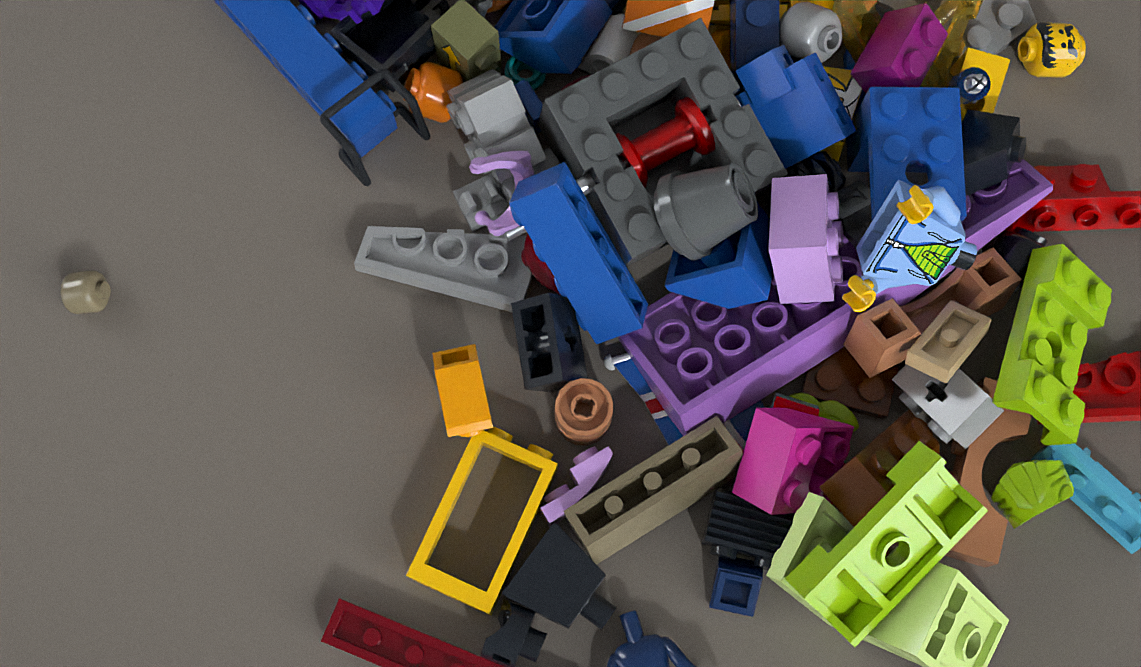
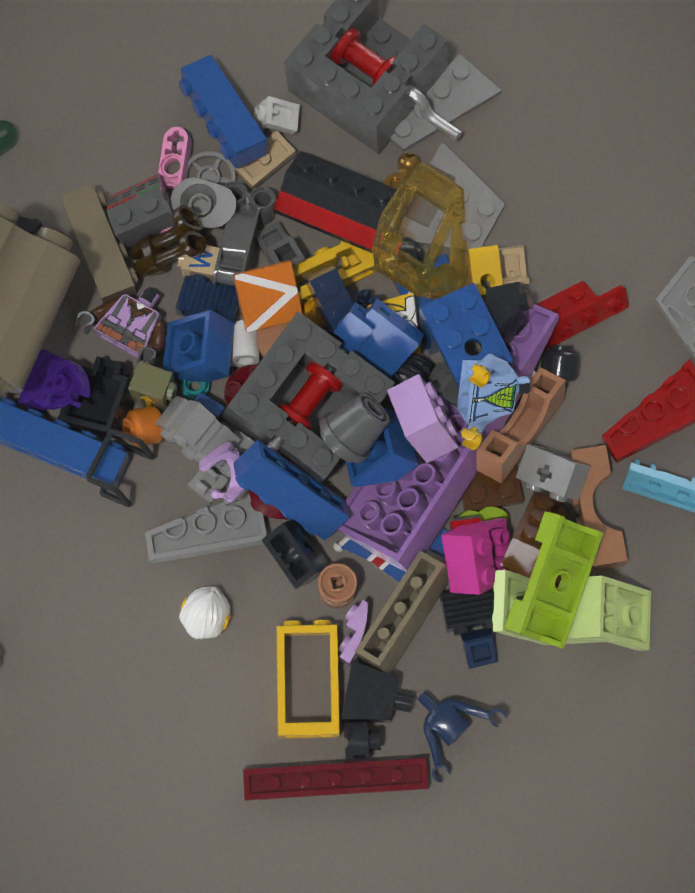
camera: 25 degrees left, 0 degrees up
(394, 366) = (205, 613): none -> white hair
(462, 391) = (257, 607): light orange slope -> none
(810, 29) = (366, 283): light grey head -> none
(900, 49) = (427, 271): magenta brick -> none
(948, 341) = (537, 440): tan plate -> none
(973, 84) = (480, 275): clear blue piece -> none
(1017, 99) = (513, 265): none -> tan bracket
(1031, 489) = (627, 505): lime hair -> none
(1048, 340) = (597, 384): lime piece -> none
(1051, 49) = (521, 218): yellow head -> none

